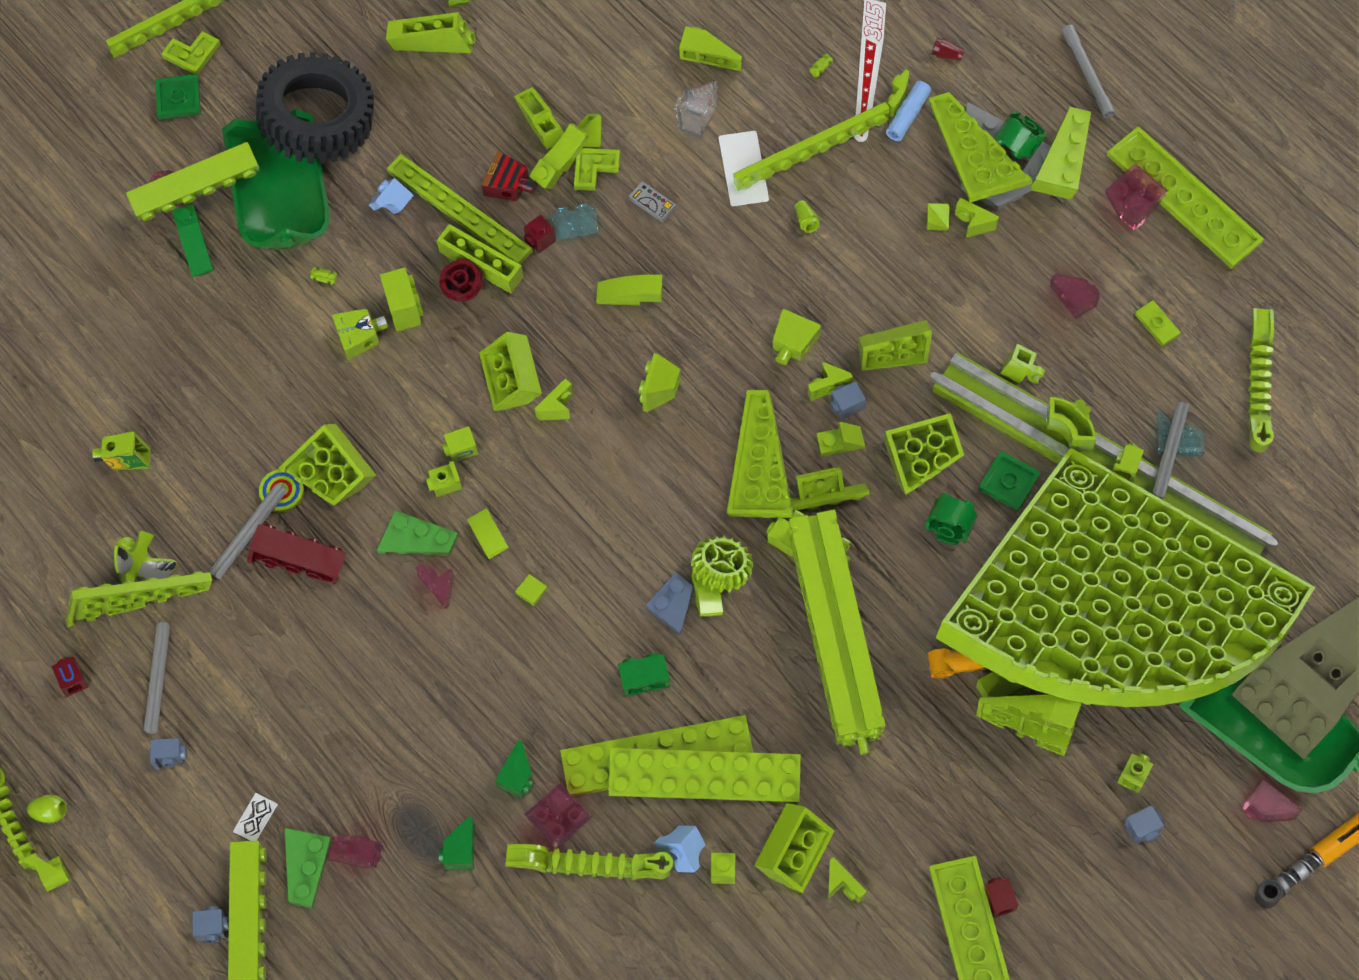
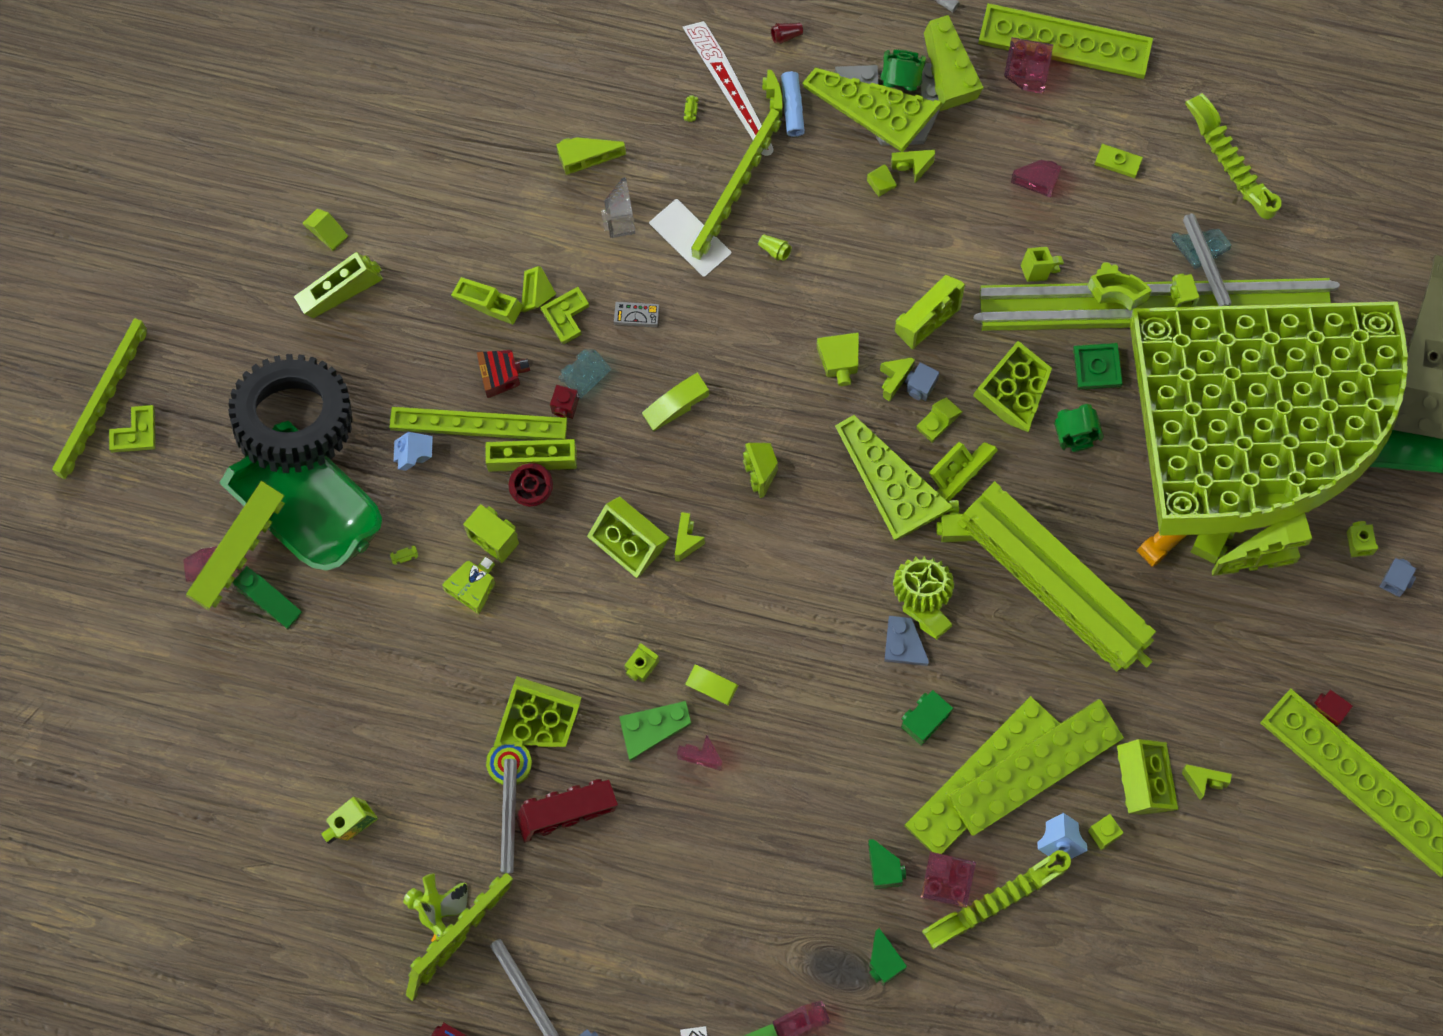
camera: 35 degrees left, 5 degrees up
(178, 96) = (153, 478): green plate -> none
(460, 444) = (632, 625): lime brick -> none
(531, 590) = (781, 708): lime tile -> none
(559, 157) = (533, 324): lime slope -> none

